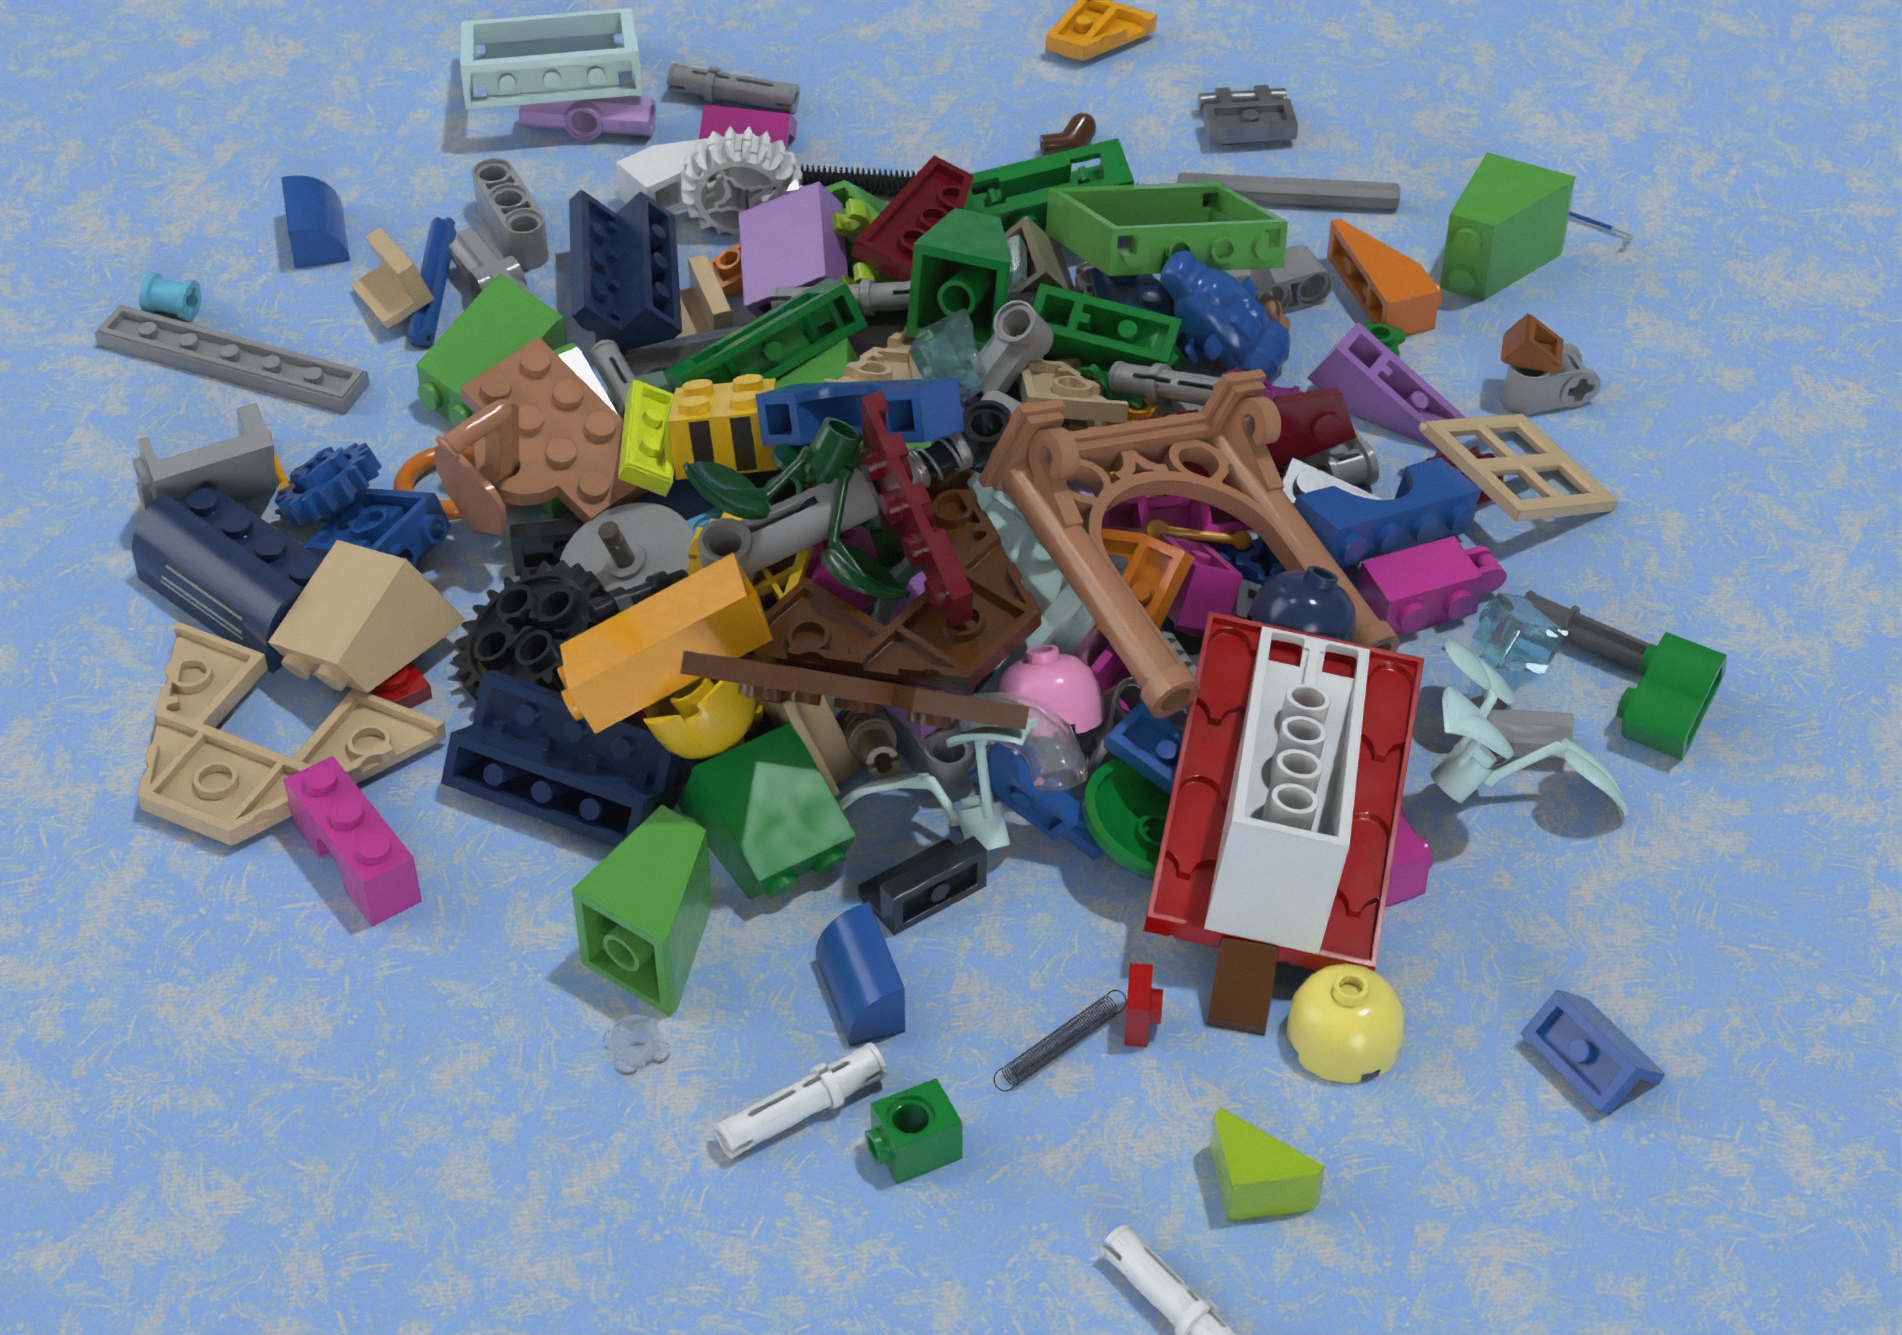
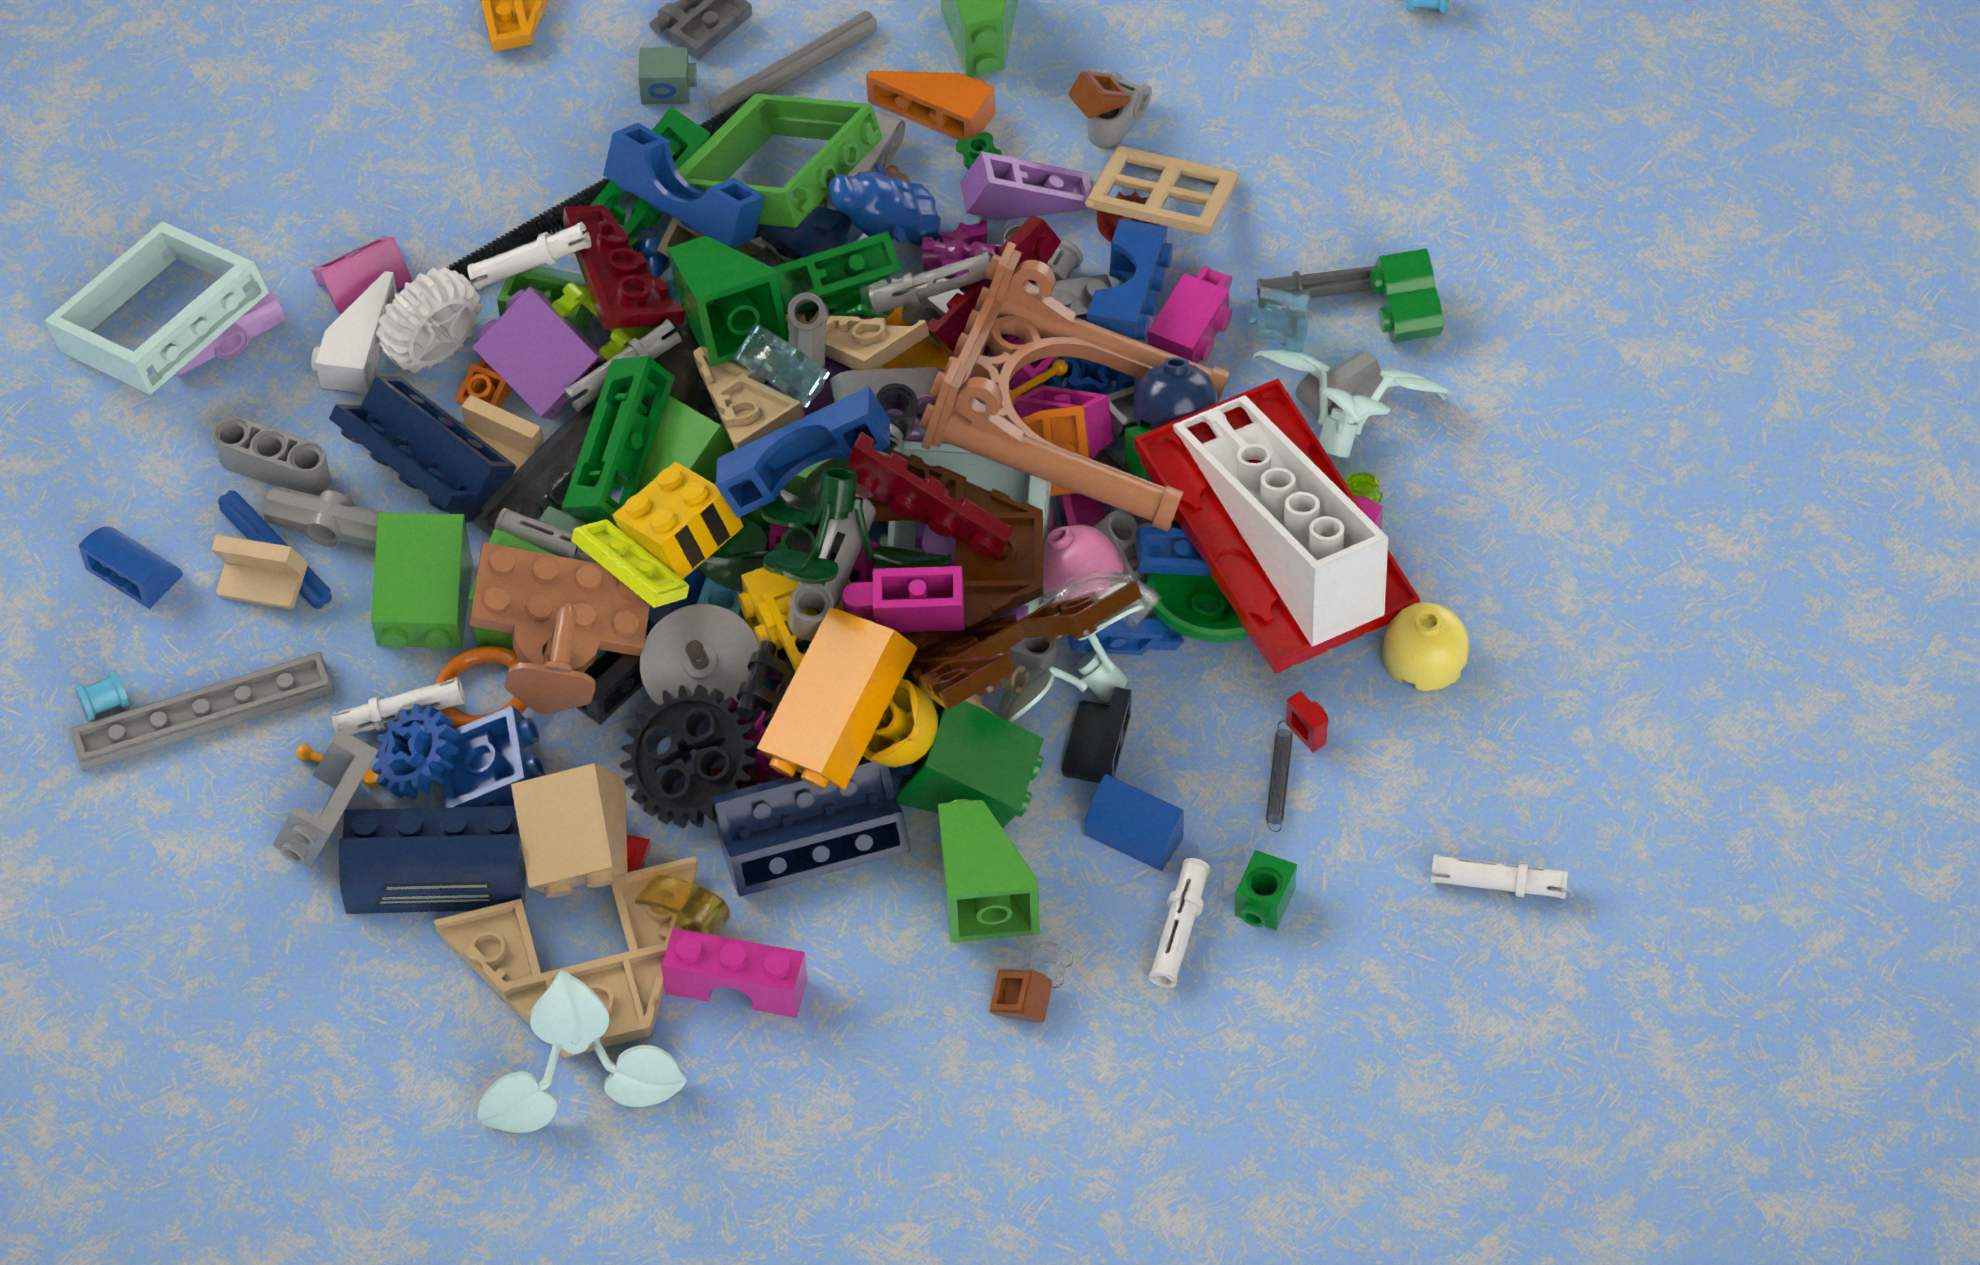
camera: 40 degrees left, 10 degrees up
(96, 731) = (571, 1020): none -> light aqua plant
(380, 756) = (696, 906): none -> clear yellow panel
(389, 452) = (377, 712): none -> white pin
(578, 1055) = (1021, 995): none -> dark orange slope
(716, 85) = (316, 234): light grey pin -> none
(818, 597) = (910, 599): none -> dark pink brick
(875, 170) = (543, 250): none -> white pin
(1052, 221) = (644, 166): none -> blue arch
(1076, 134) = (599, 121): reddish brown arm -> none
(1162, 135) = (665, 75): none -> sand green brick
(1243, 986) = (1349, 666): reddish brown slope -> none
(1260, 1172) = (1467, 770): lime slope -> none
(1441, 835) = (1364, 485): none -> clear neon green plate
(1589, 1050) = (1568, 564): blue panel -> none

